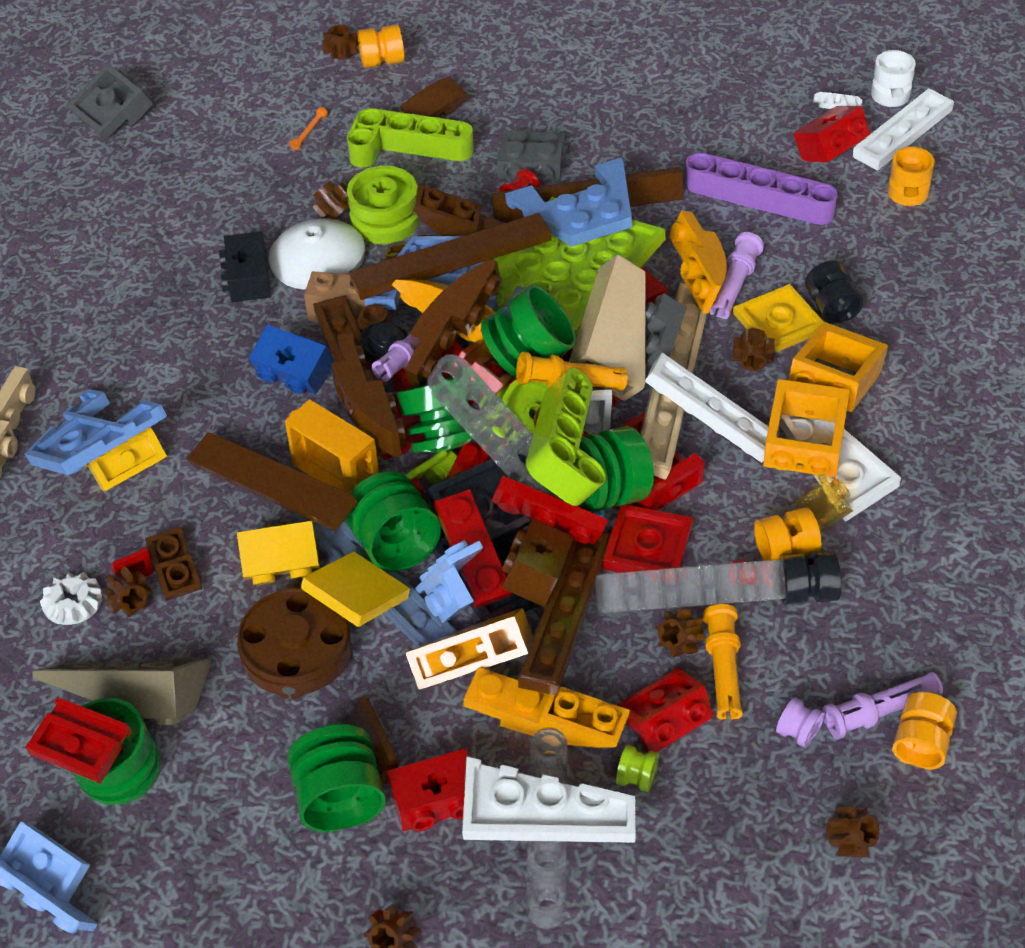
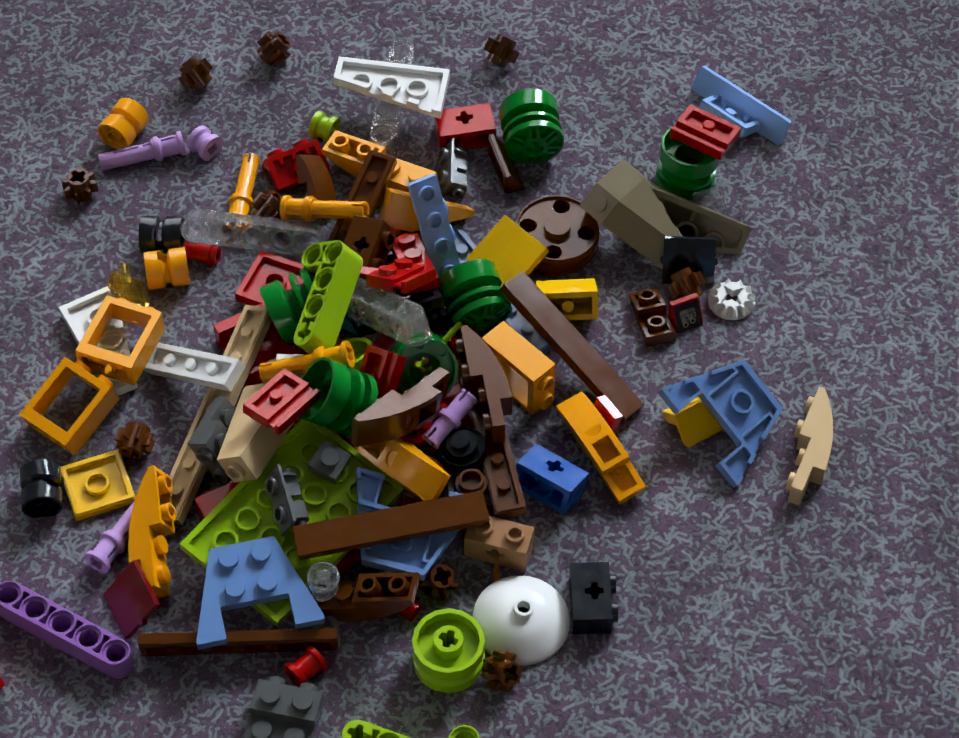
camera: 175 degrees left, 5 degrees up
(120, 618) = (690, 252): none -> black piece
(197, 649) = (631, 211): none -> dark tan wedge
(229, 431) = (608, 412): none -> red tile
(241, 399) = (601, 447): none -> light orange slope
(444, 714) = (453, 160): none -> dark grey hinge
(476, 464) = (400, 275): none -> red plate
(510, 208) = (324, 574): none -> clear wheel
(558, 261) = (282, 487): none -> dark grey hinge
(586, 306) = (281, 401): none -> plate
(620, 612) = (311, 208): none -> light orange pin
(626, 666) = (314, 173): none -> reddish brown slope
(702, 213) = (131, 599): none -> dark red piece
(747, 892) = (274, 48): none -> reddish brown gear
(946, 638) = (79, 185): none -> reddish brown gear

